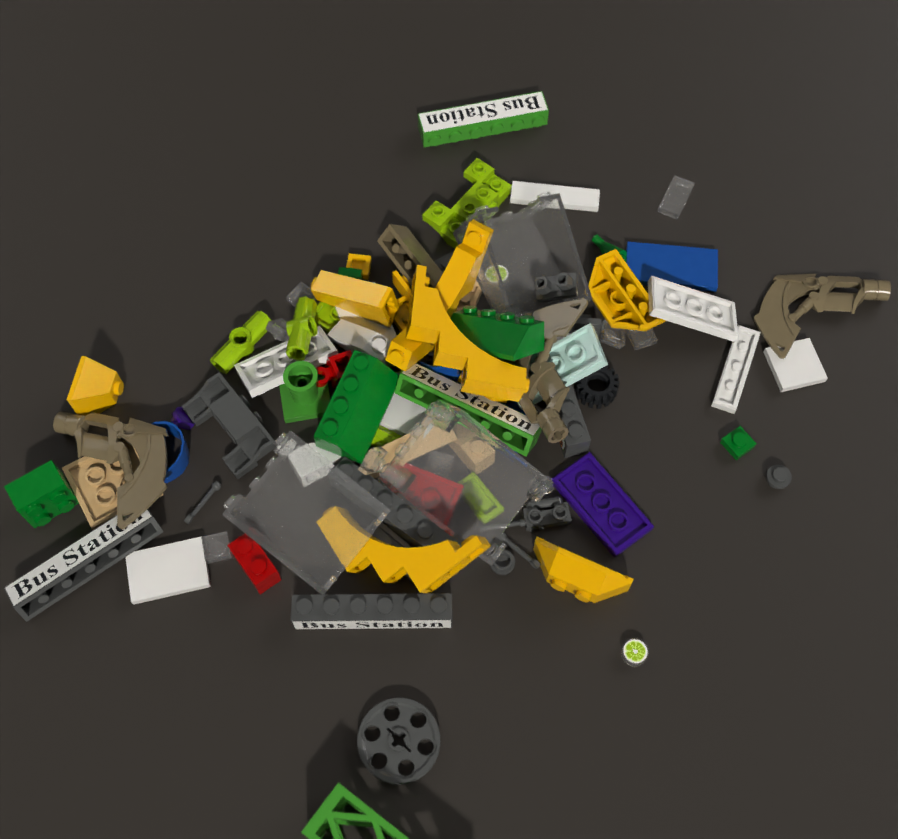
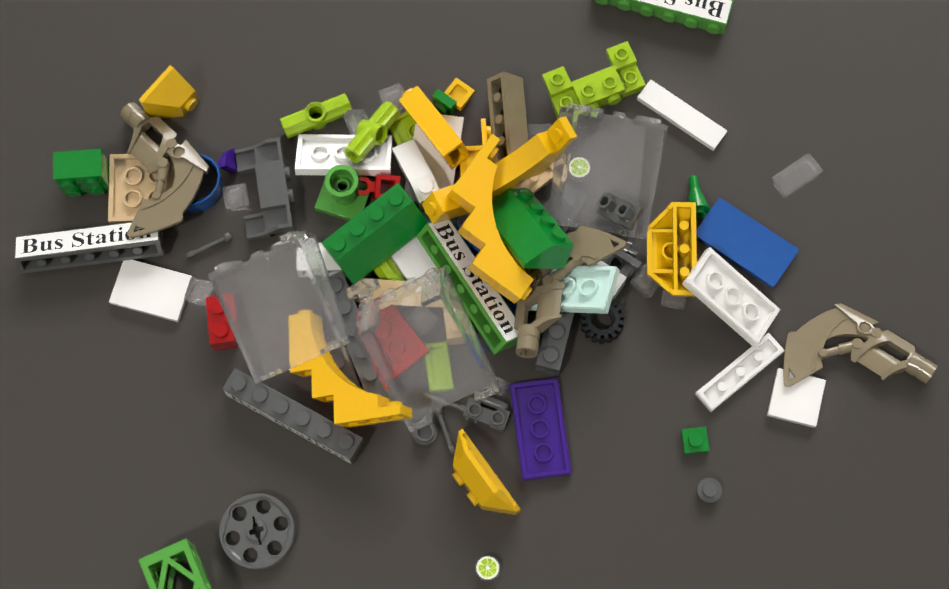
camera: 30 degrees right, 10 degrees up
(205, 447) = (236, 197): none -> clear plate

